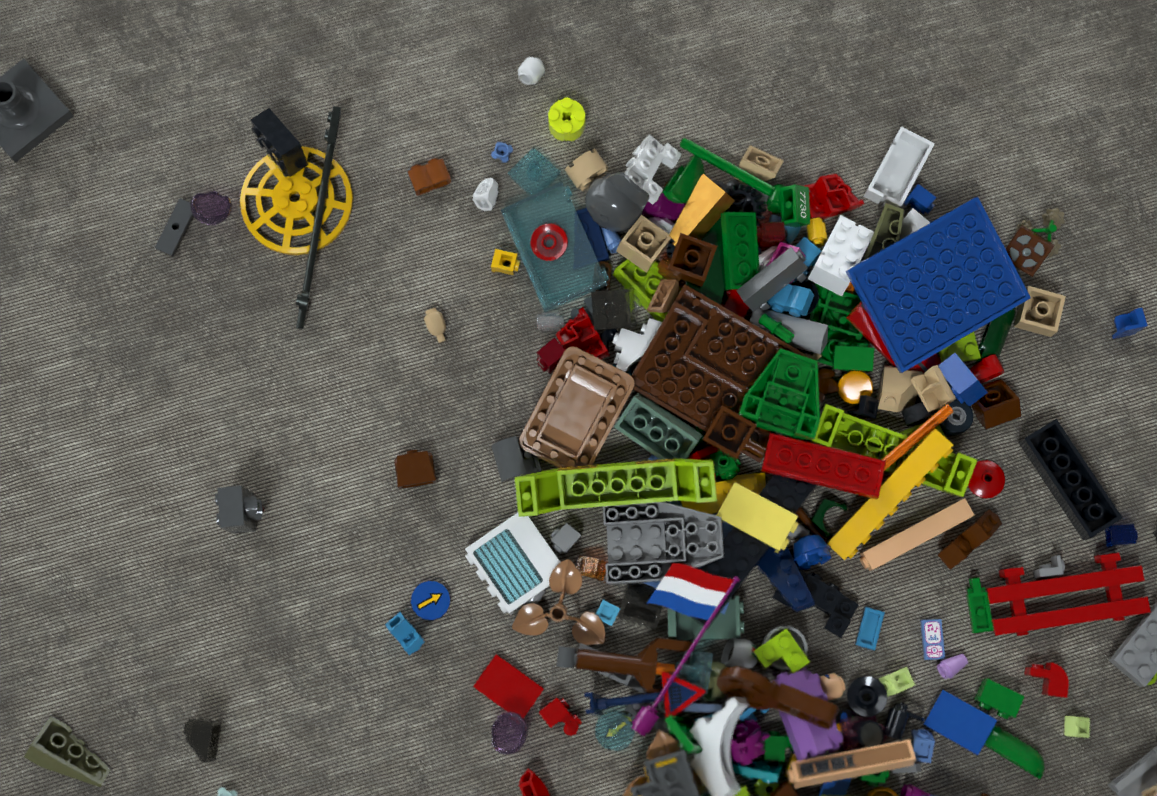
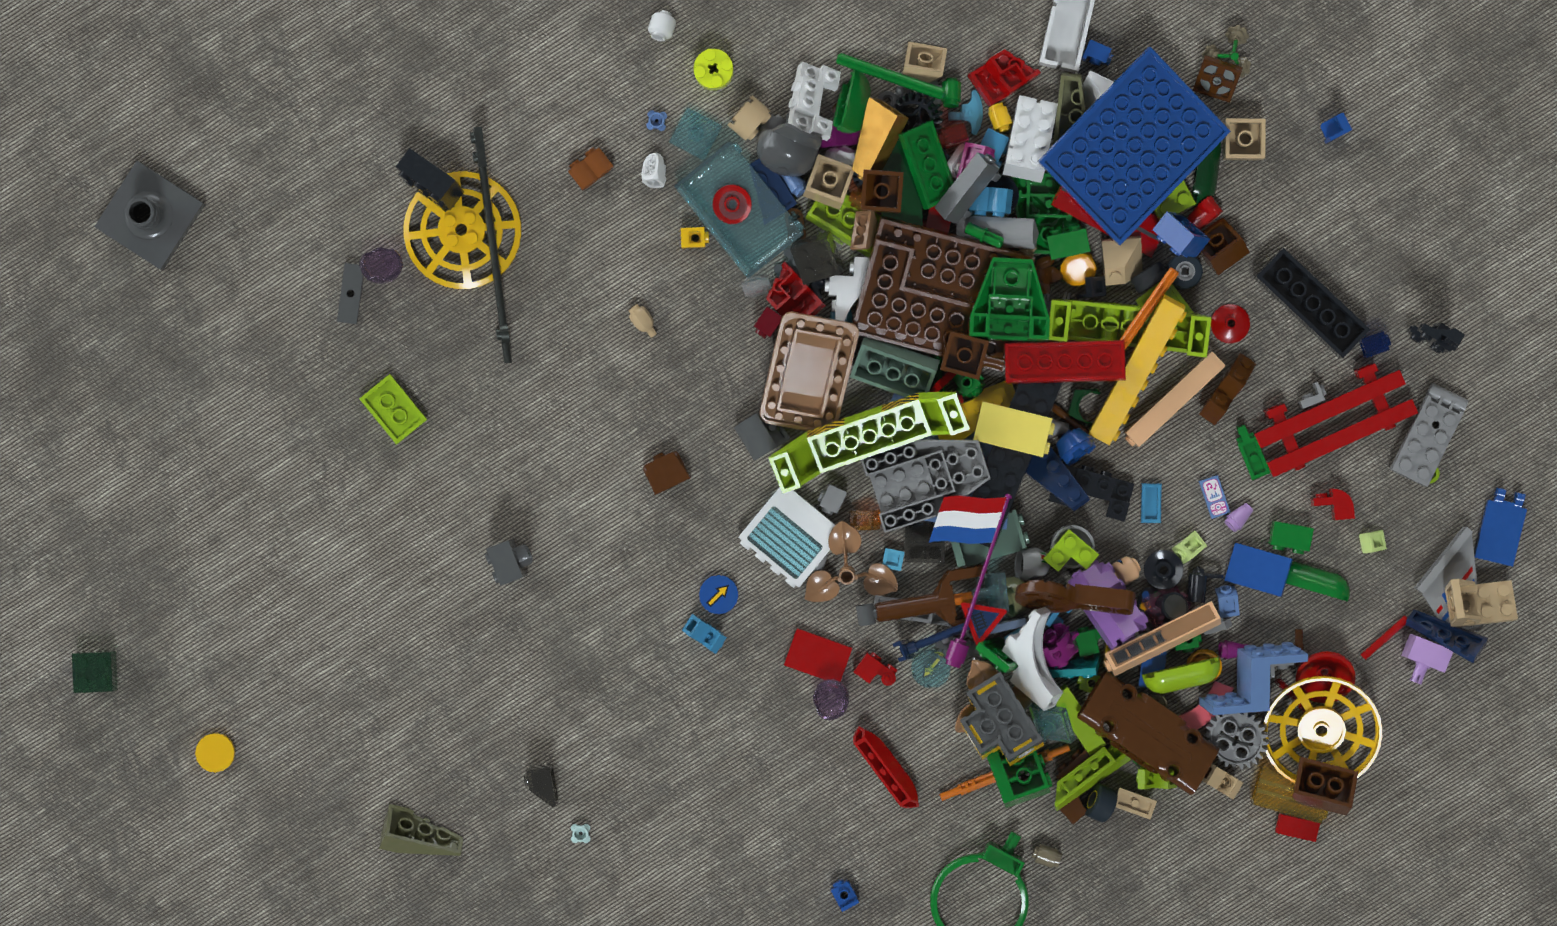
camera: 20 degrees left, 10 degrees up
(180, 341) = (393, 409): none -> lime plate
(795, 205) = (971, 98): green brick -> none
(933, 389) = (1154, 253): tan panel -> none

